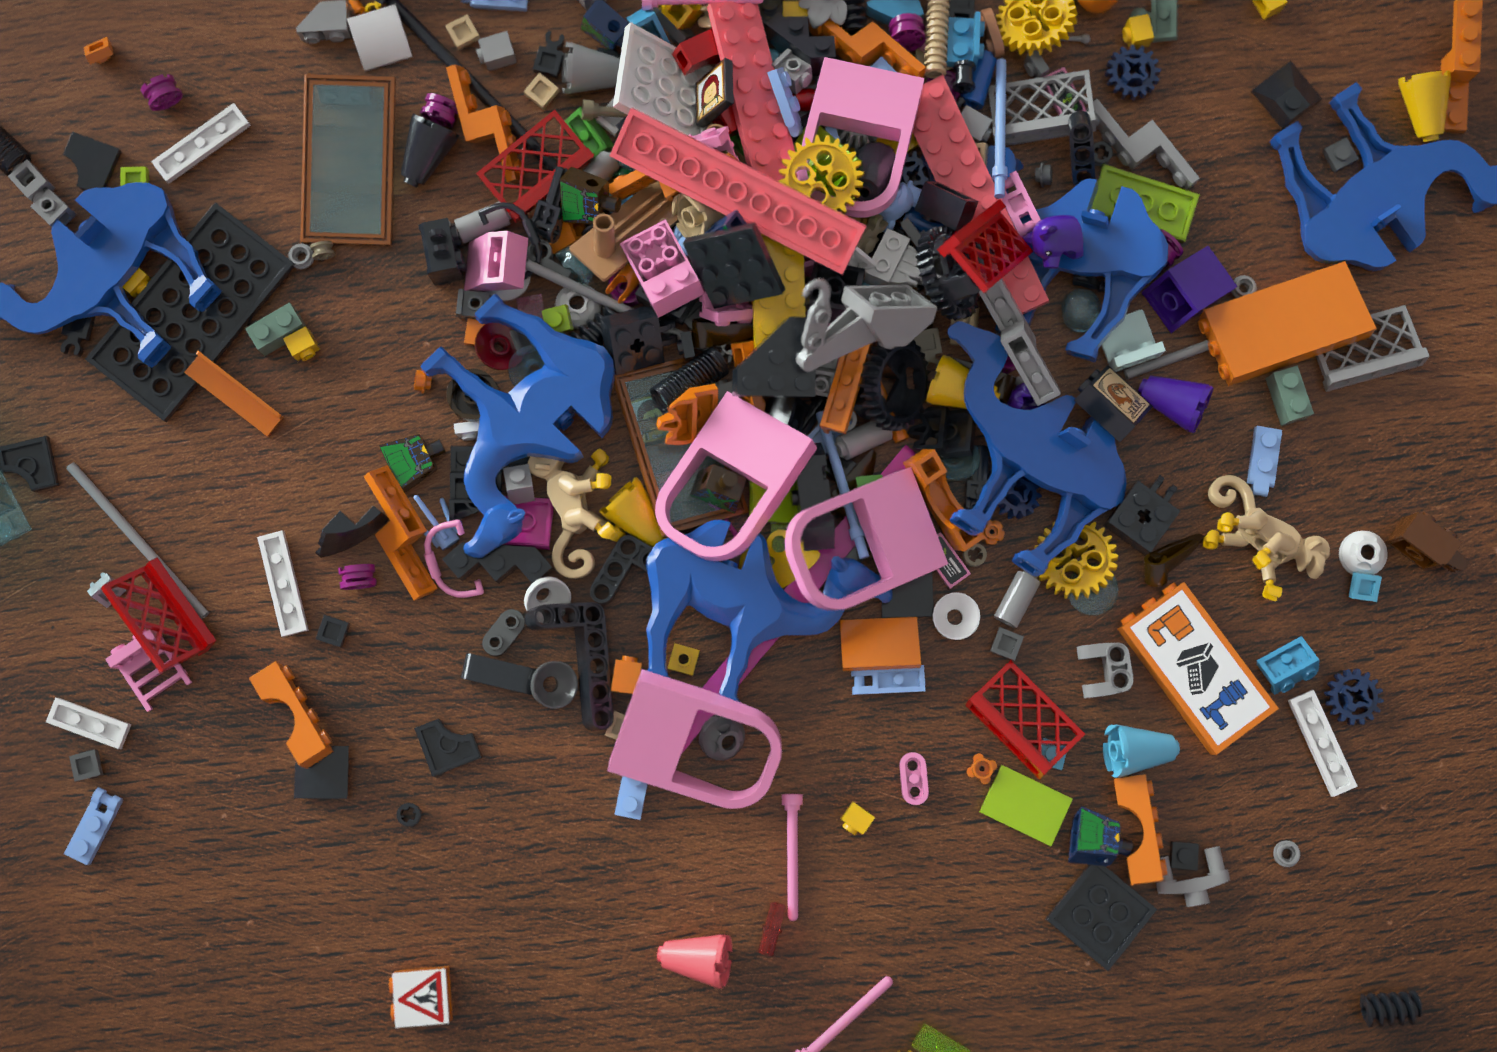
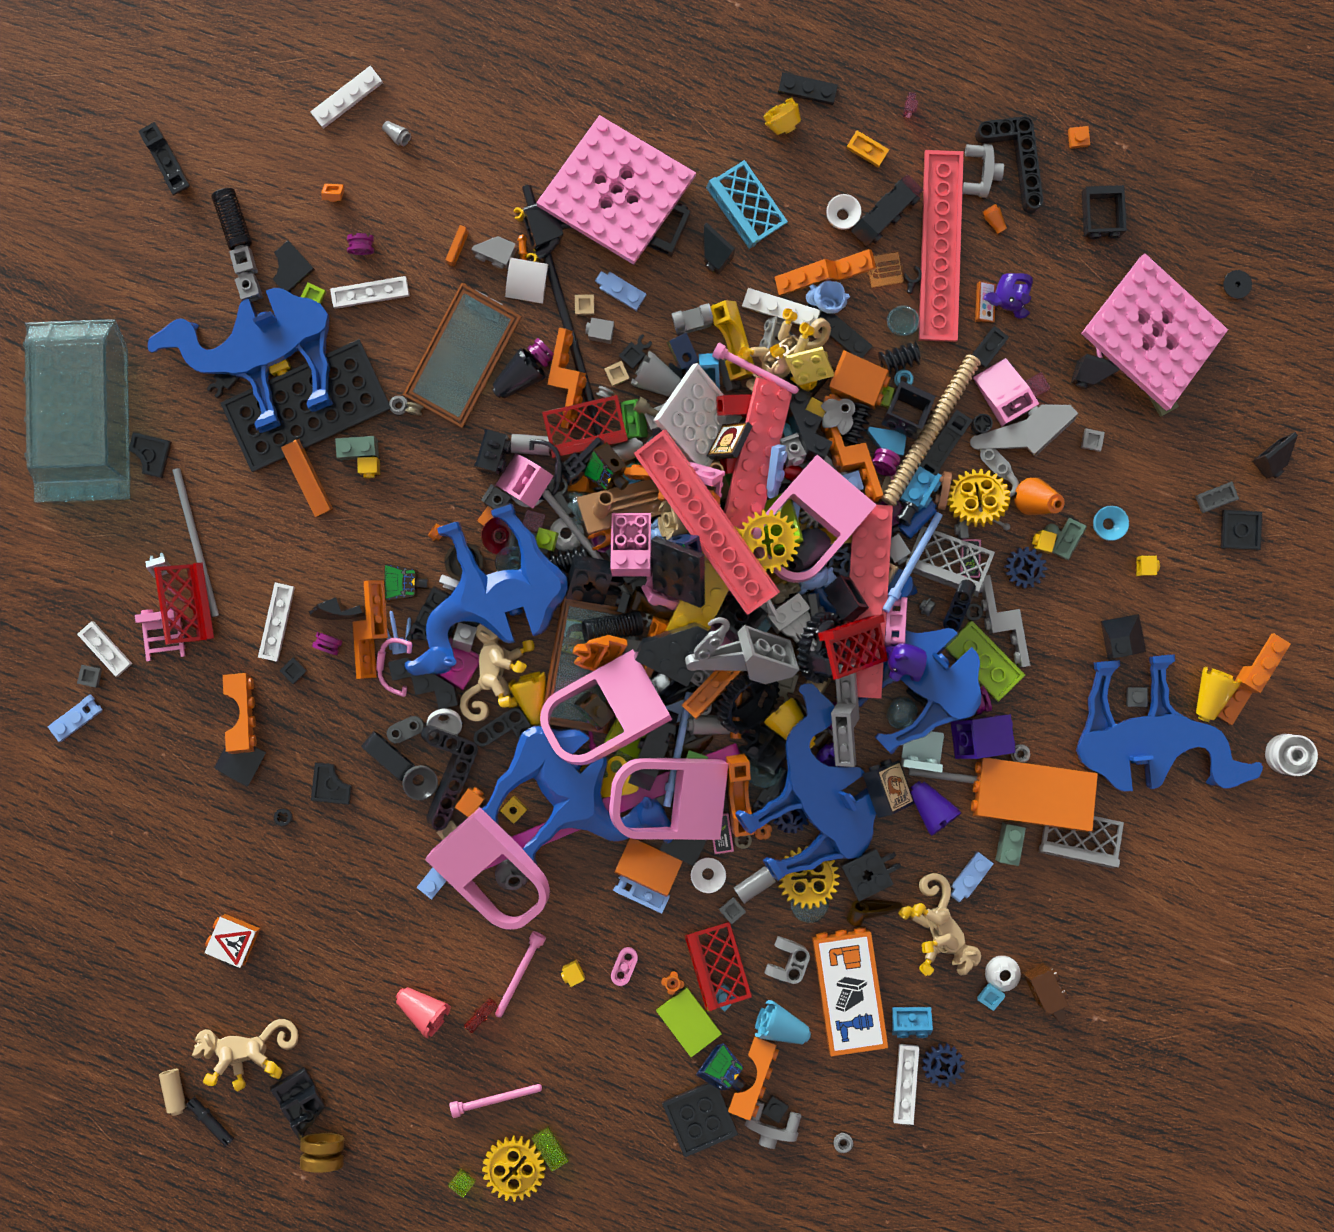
camera: 30 degrees right, 5 degrees up
(277, 39) = (457, 246): none -> orange tile
(536, 117) = (604, 392): none -> light grey bush

